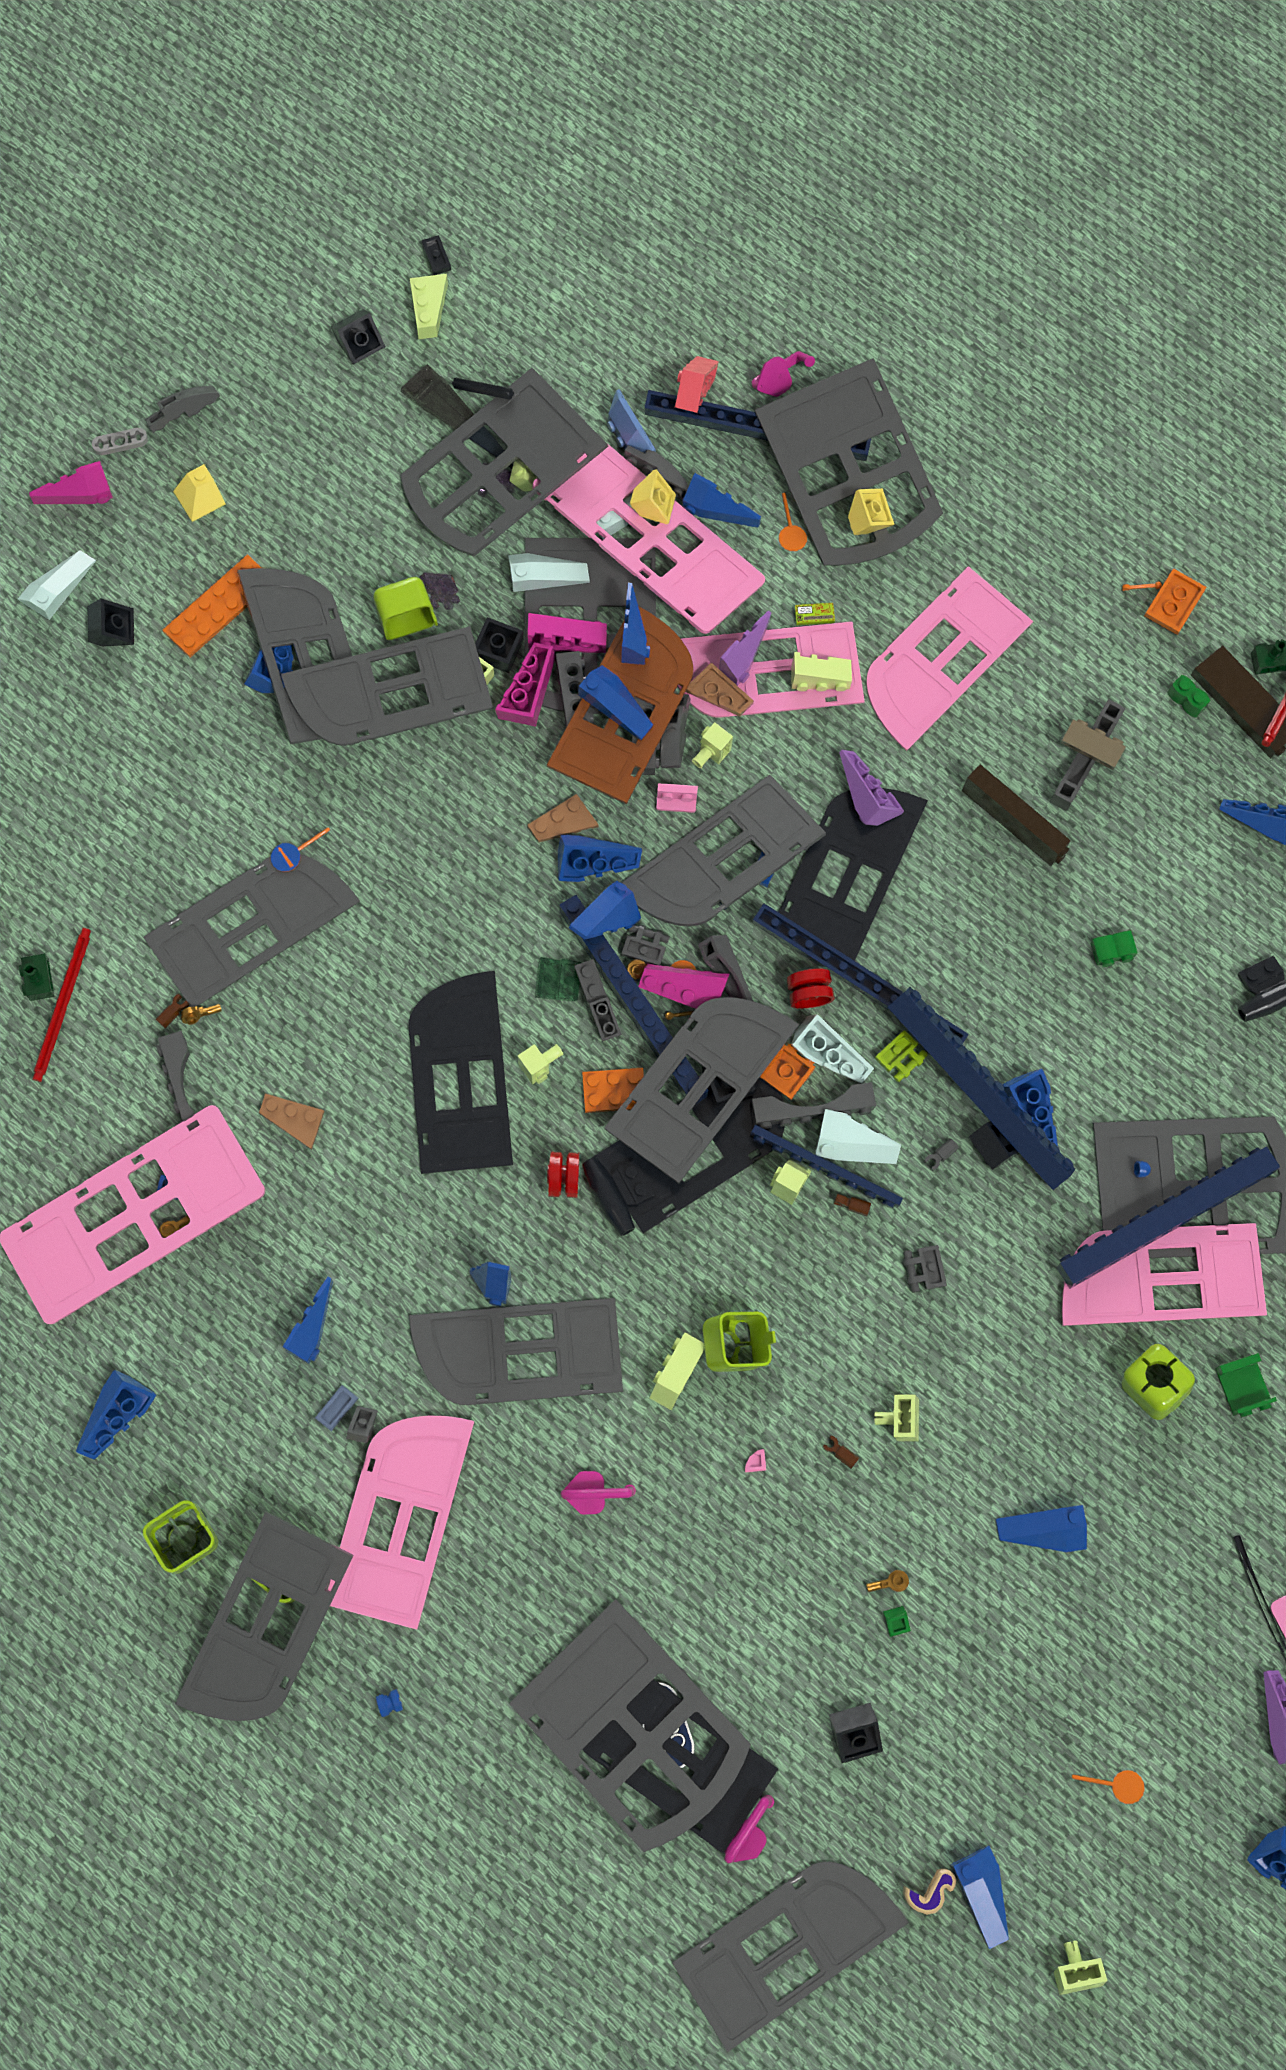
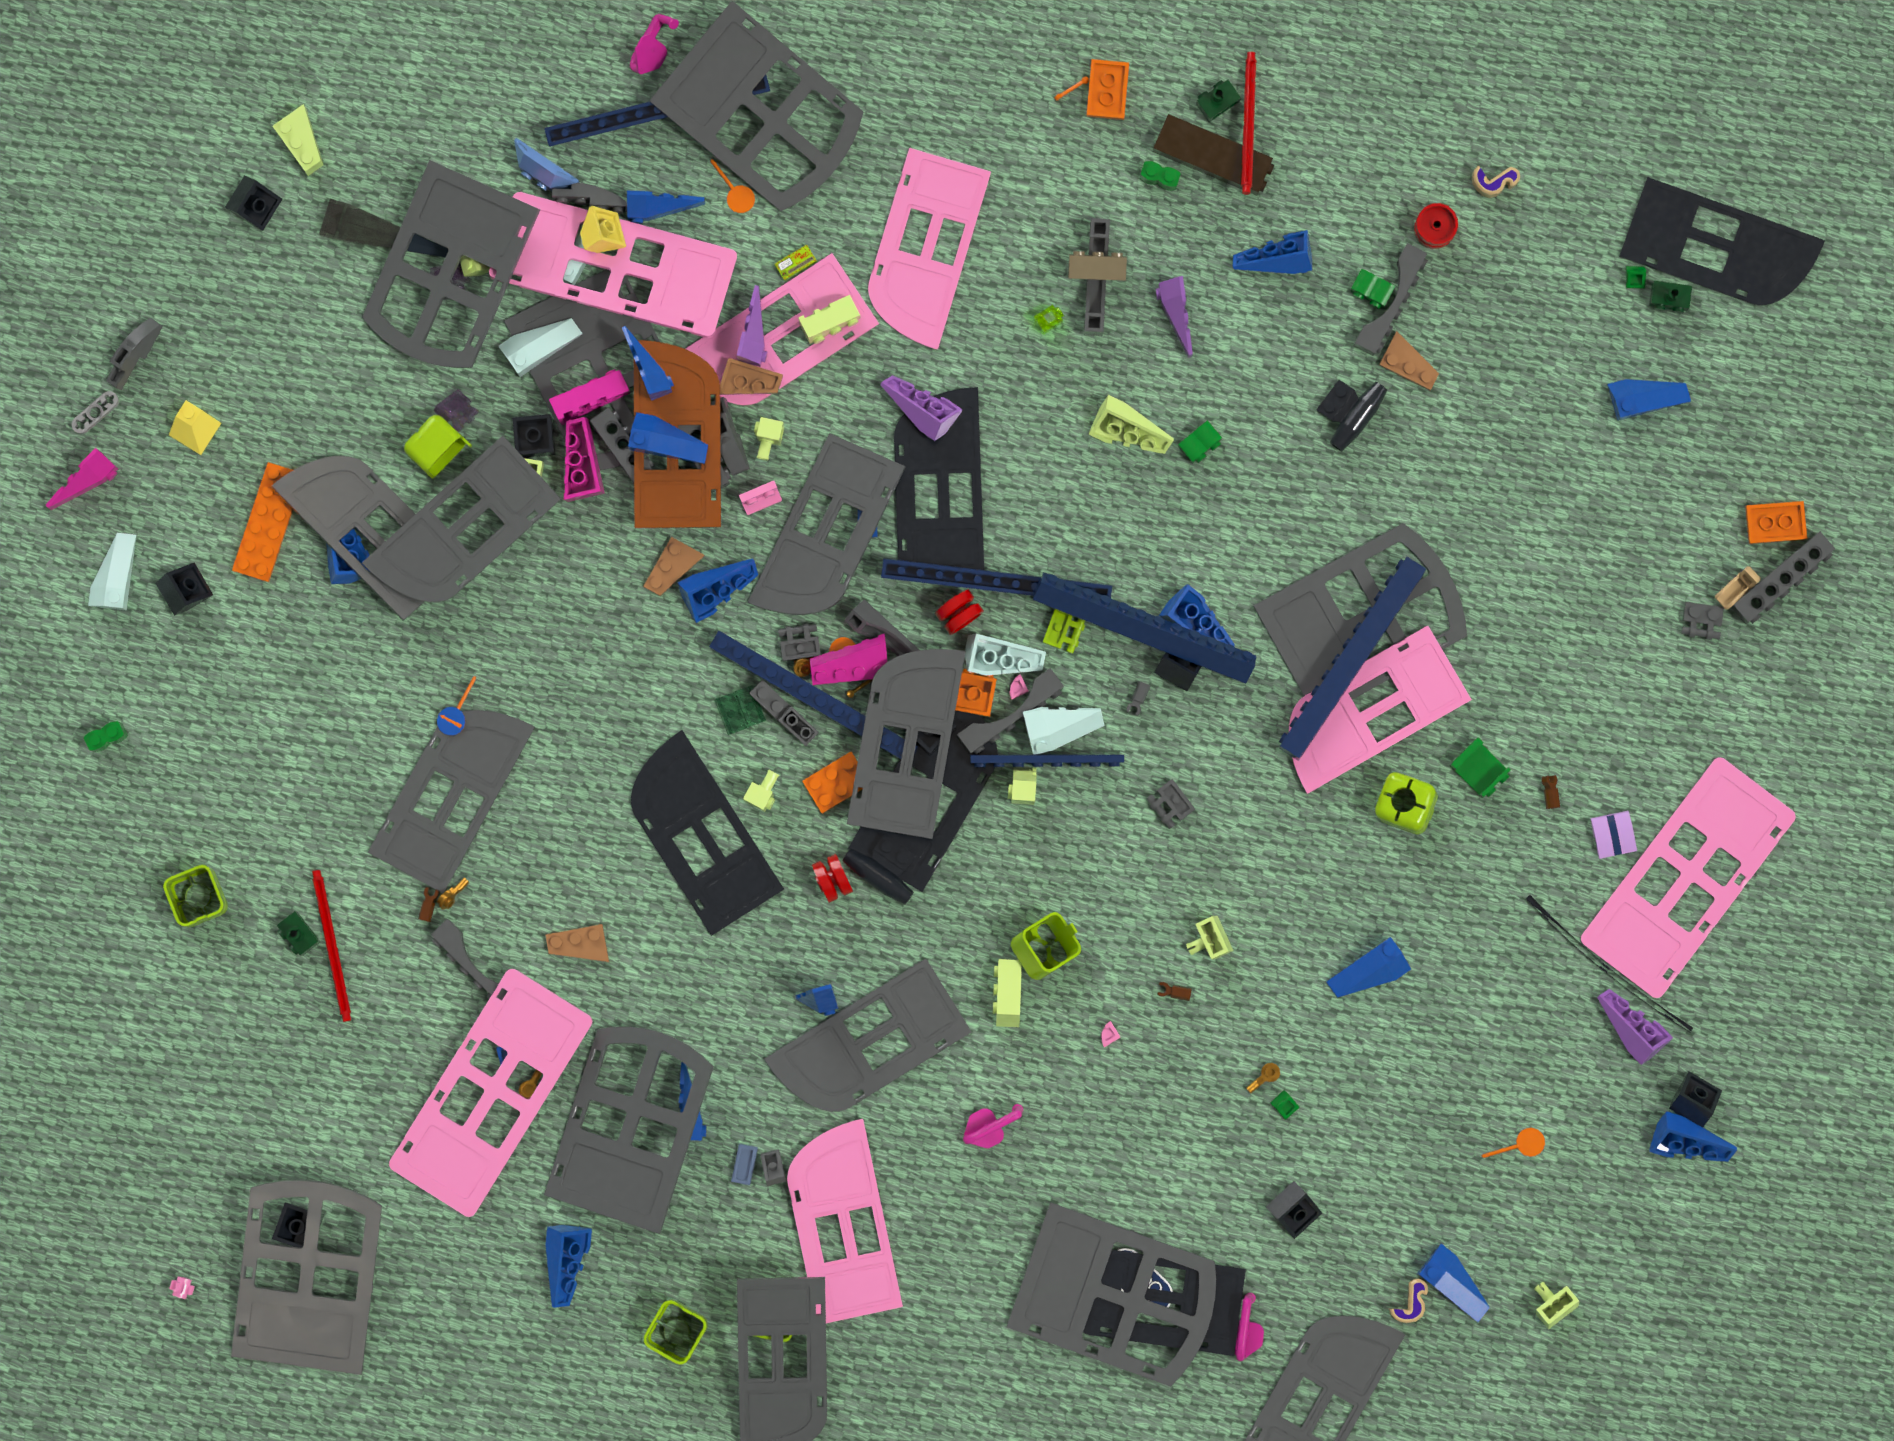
camera: 20 degrees left, 10 degrees up
(206, 1353) = (614, 1174): none -> dark grey door
(389, 1703) = (910, 1375): blue wheel -> none
(436, 255) = (281, 86): black plate -> none
(483, 388) = (394, 200): black axle -> none
(608, 912) = (756, 631): blue wedge -> none
(695, 382) = (582, 99): coral wedge -> none
(831, 1088) = (1018, 687): none -> bright pink tile
(854, 1205) = (1085, 779): reddish brown bar -> none
(869, 512) = (799, 145): light yellow slope -> none
(1016, 816) = (1061, 366): dark brown brick -> none
(1024, 771) = (1049, 318): none -> clear neon green window
(1049, 897) = (1124, 424): none -> yellowish green wedge
(1141, 1169) = (1312, 627): blue hinge -> none
(1149, 807) = (1173, 302): none -> medium lavender wedge

